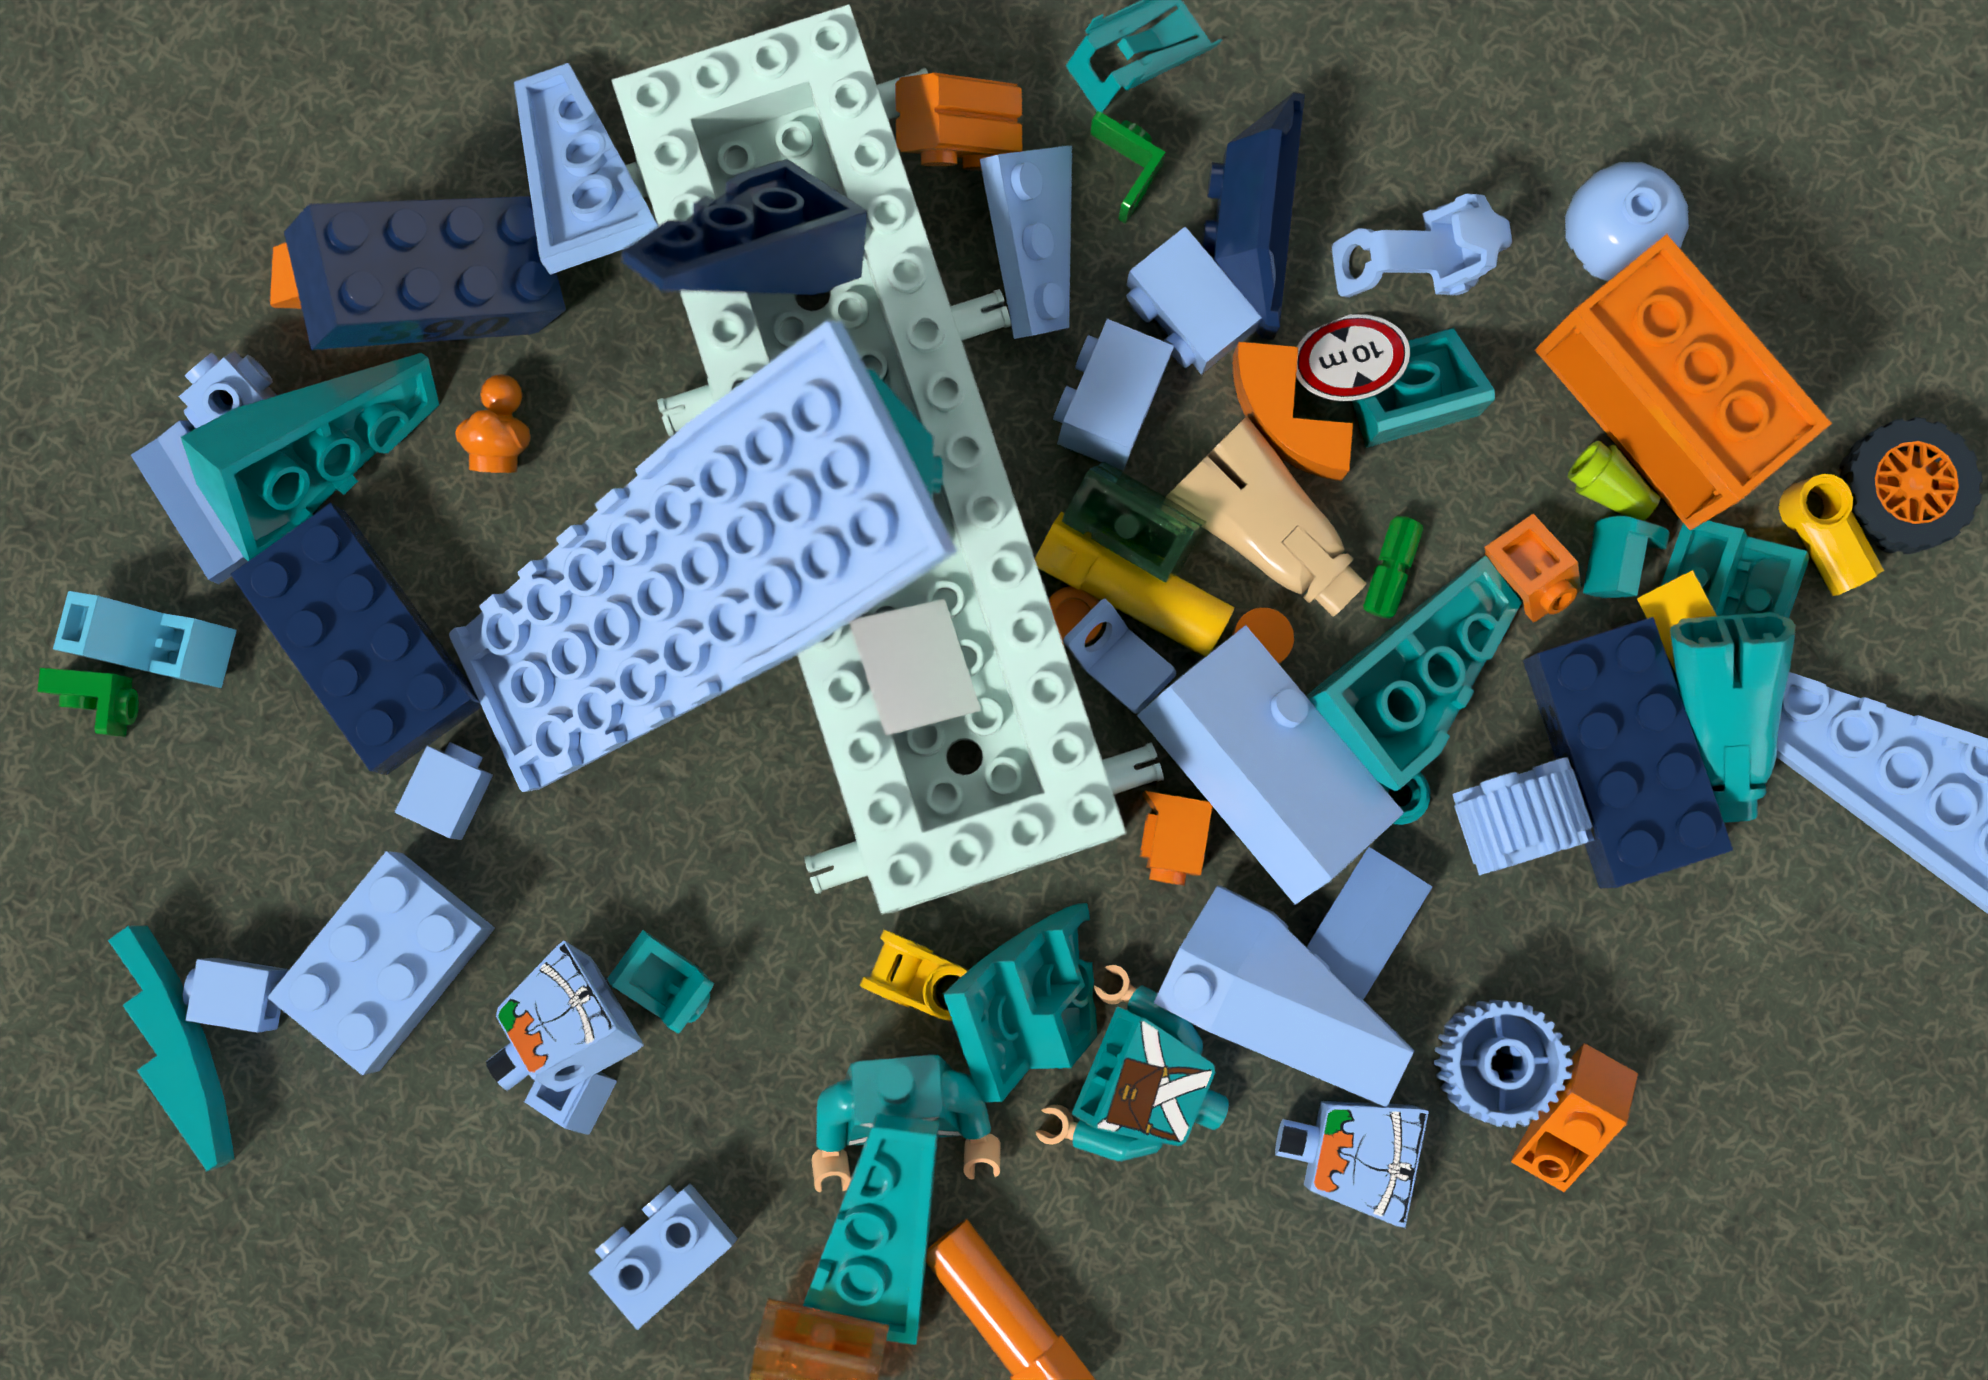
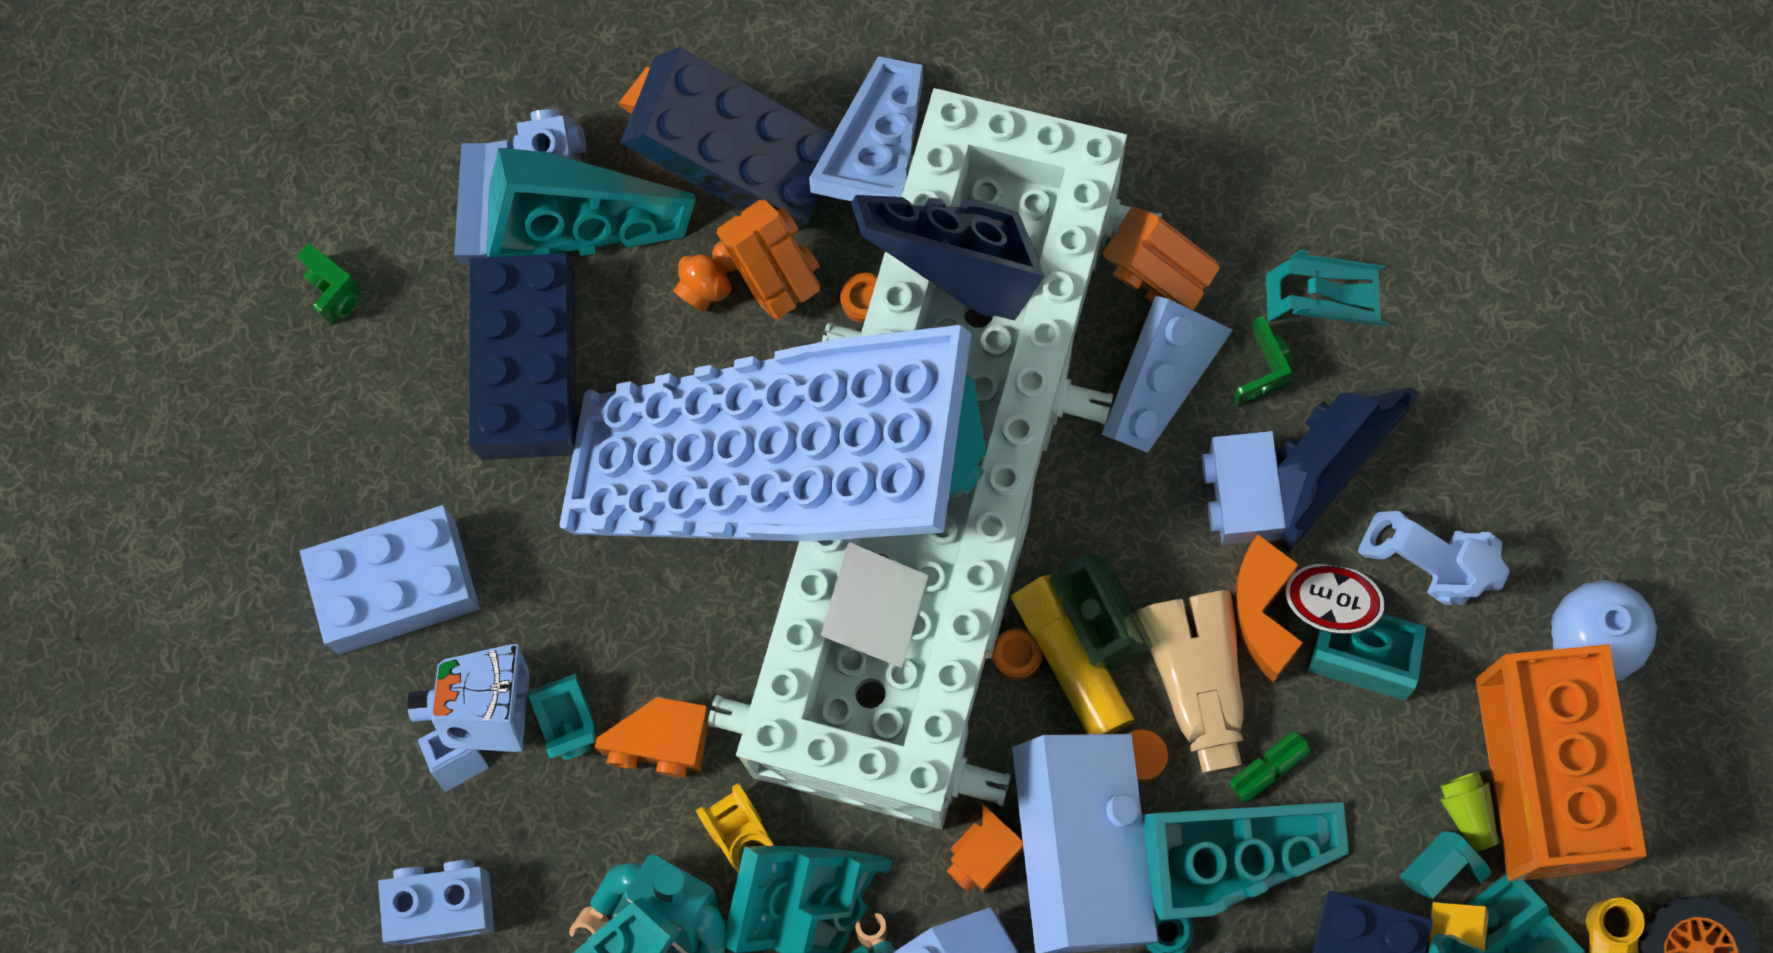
camera: 45 degrees right, 10 degrees down
(144, 639) = (387, 268): medium azure brick -> none
(183, 1070) = (214, 565): teal slope -> none
(232, 994) = (278, 537): light blue brick -> none
(445, 790) = (510, 493): light blue brick -> none
(551, 371) = (770, 258): none -> orange brick
(672, 350) = (857, 294): none -> orange tile
(773, 932) = (659, 734): none -> orange slope
(1114, 393) = (1145, 516): light blue brick -> none
(1119, 659) = (1029, 703): light blue bracket -> none
(1536, 567) = (1373, 834): orange bracket -> none

